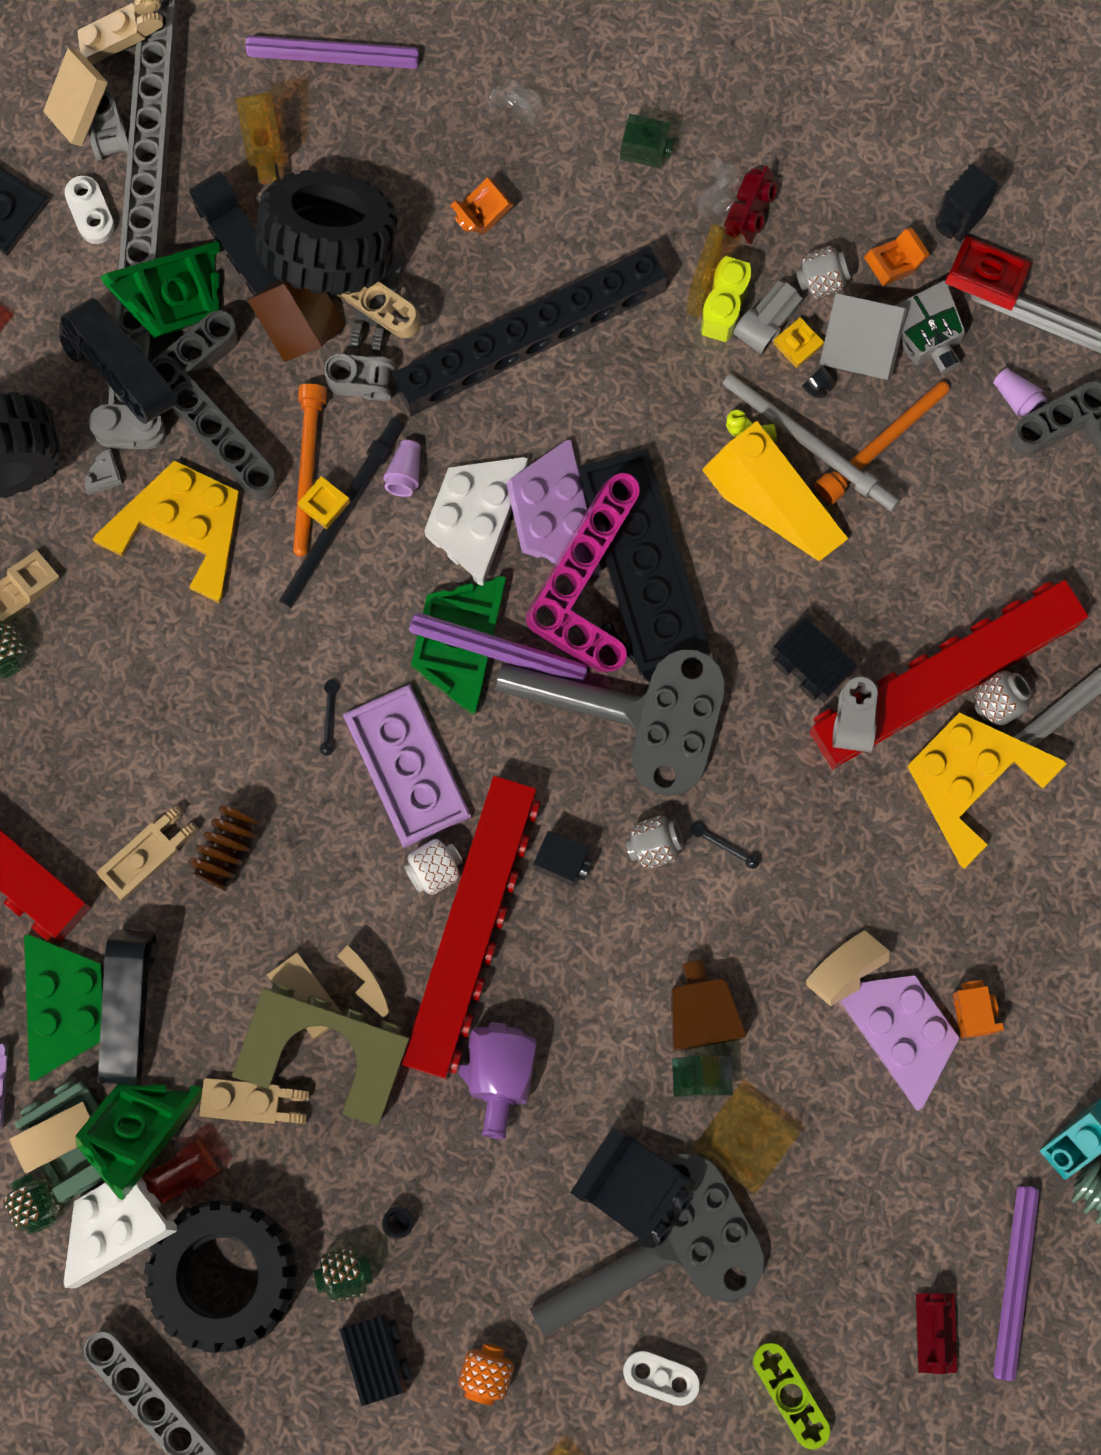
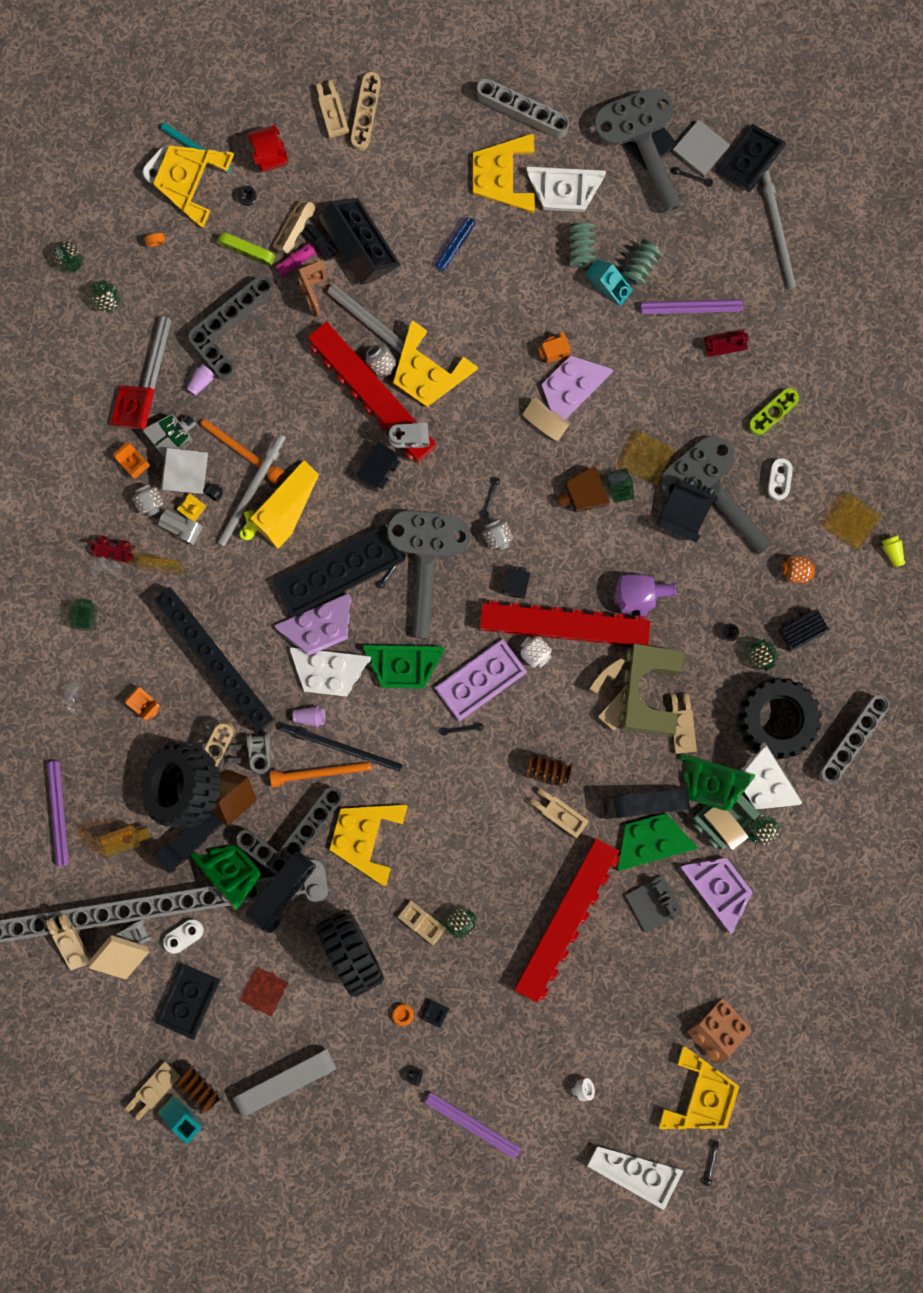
camera: 105 degrees left, 5 degrees up
(102, 473) = (344, 890): light grey tile -> none
(185, 1171) = (729, 752): clear red piece -> none
(323, 502) = (339, 756): yellow tile -> none
(496, 647) = (406, 641): medium lavender axle -> none
(579, 574) = (356, 601): dark pink beam -> none
(724, 301) = (180, 551): neon yellow brick -> none
(965, 203) = (94, 426): black brick -> none

